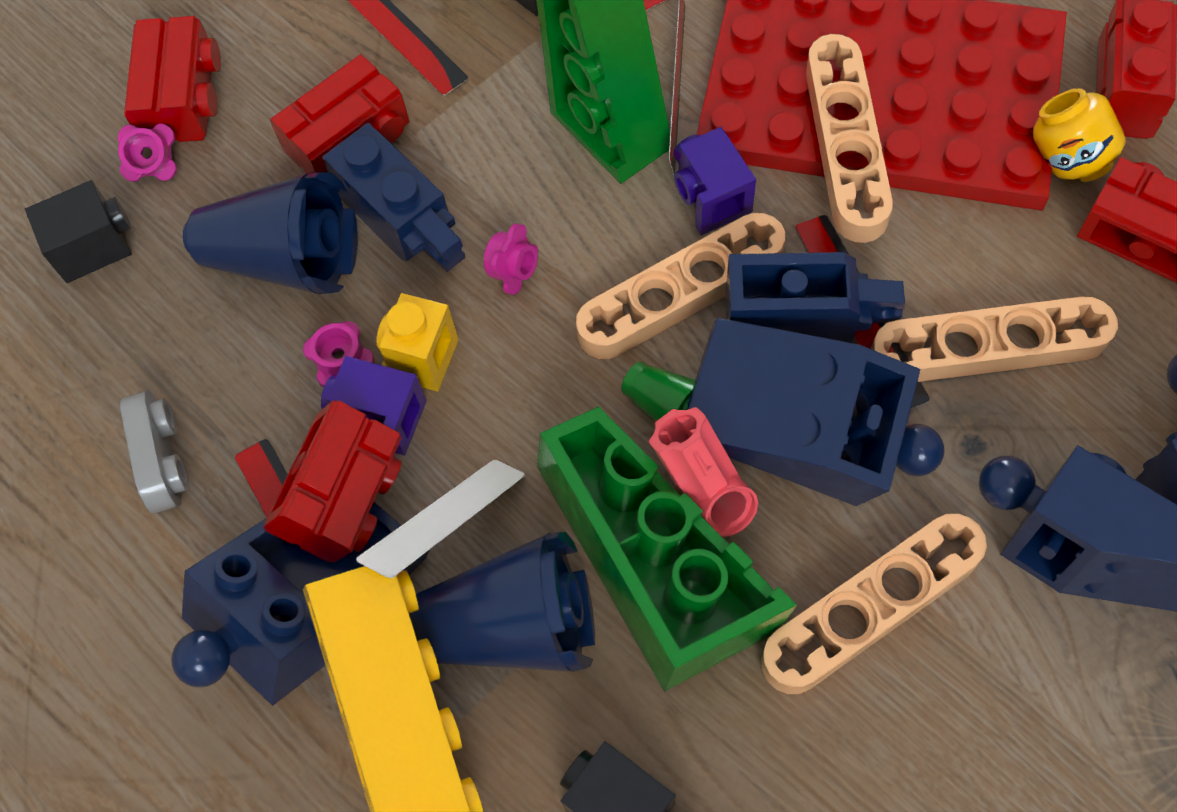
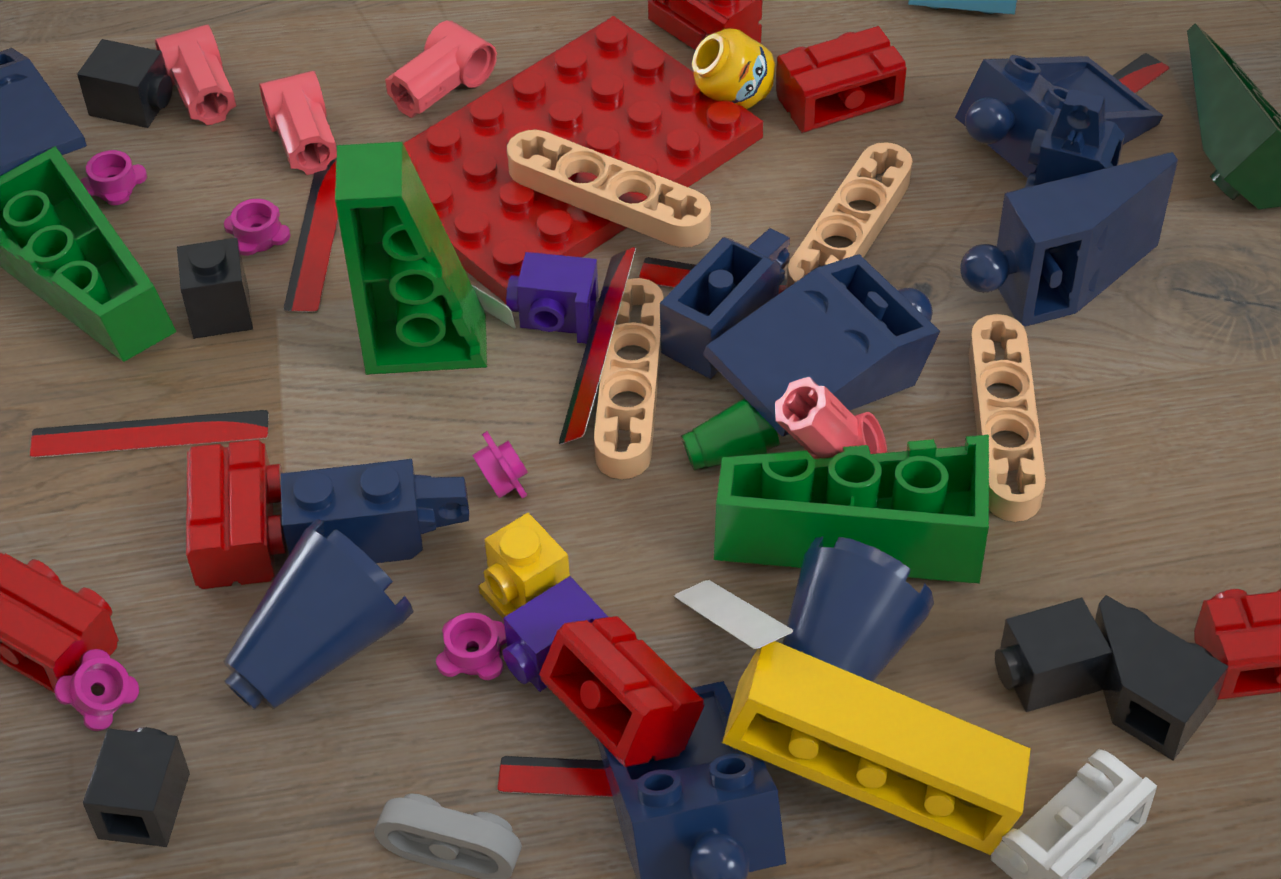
camera: 60 degrees left, 15 degrees down
(688, 240) = (597, 346): none -> red sticker

